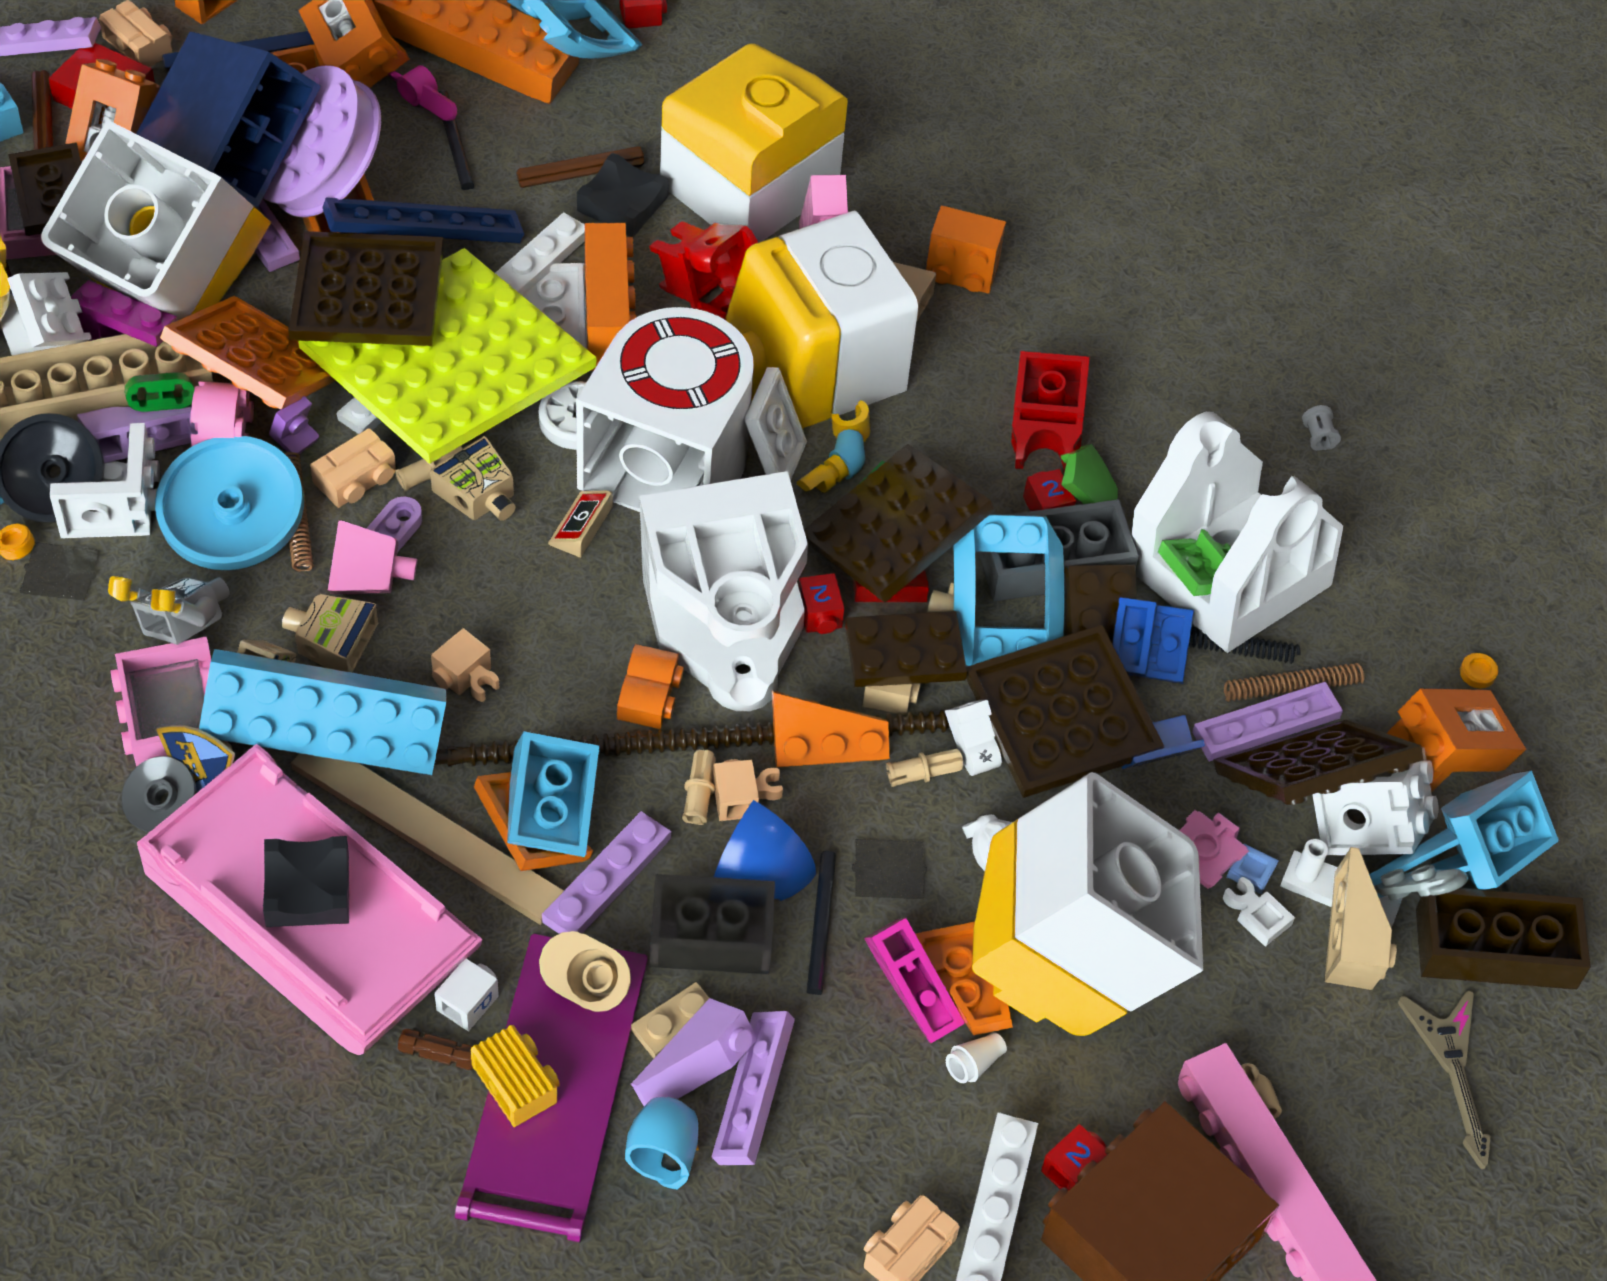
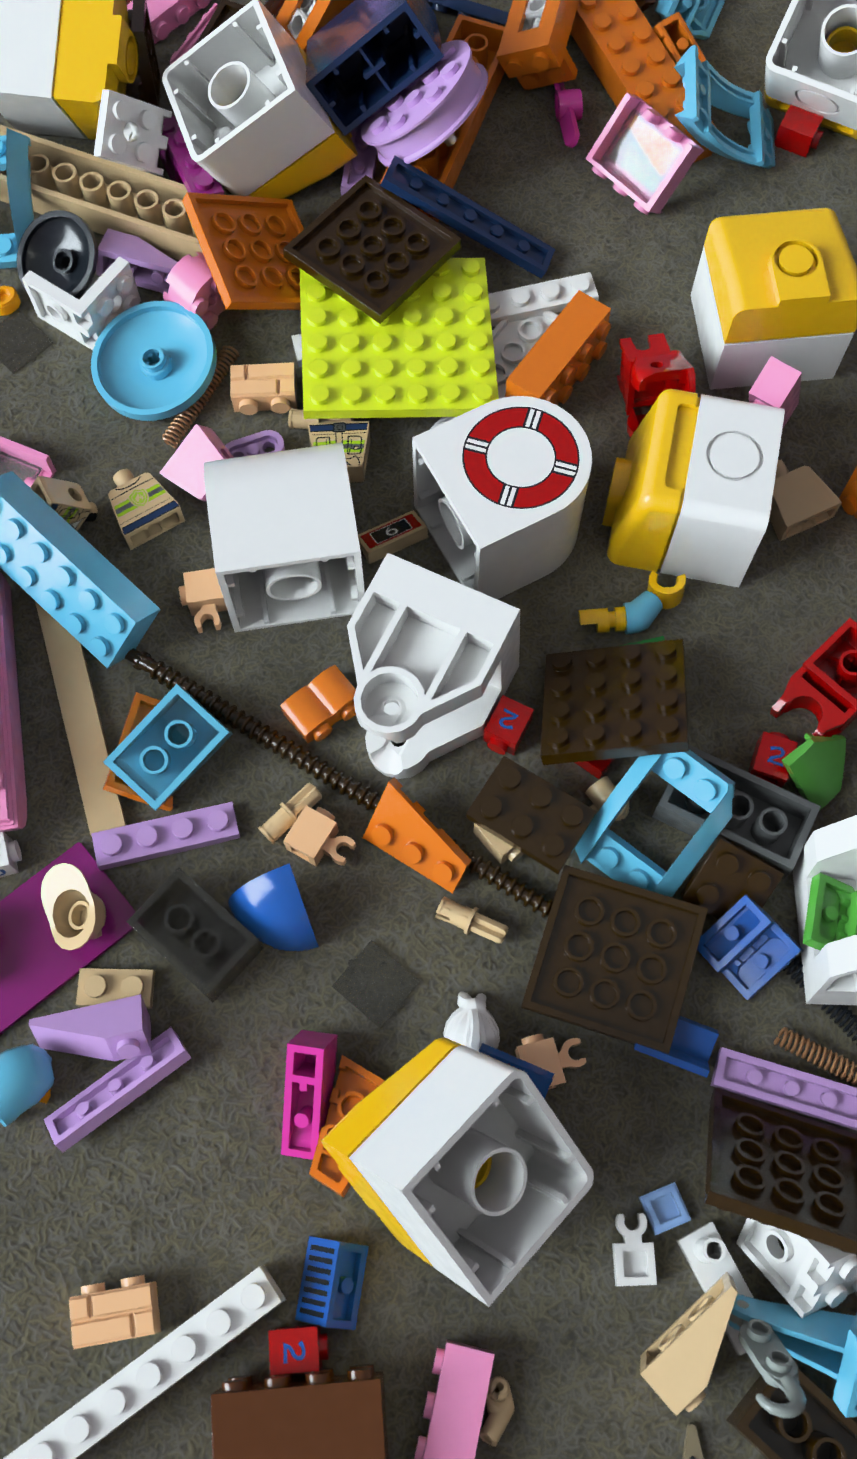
camera: 45 degrees right, 15 degrees up
(159, 392) = (170, 244): green beam -> none
(174, 610) = (46, 419): light grey torso -> none
(292, 429) = (248, 330): medium lavender bracket -> none
(458, 151) = (560, 170): black bar -> none
(511, 557) = (284, 536): none -> white brick
(530, 91) = (642, 154): none -> window
(574, 167) = (638, 242): reddish brown axle -> none
(622, 194) = (647, 284): black brick -> none
(775, 425) = (584, 557): white tile -> none
(821, 923) = (286, 990): black bar -> none
(974, 736) = (528, 925): white leg -> none
(974, 1057) = (300, 1196): white cone -> none
(1055, 1098) = (331, 1283): none -> blue panel
(1215, 845) = (633, 1163): bright pink piece -> none

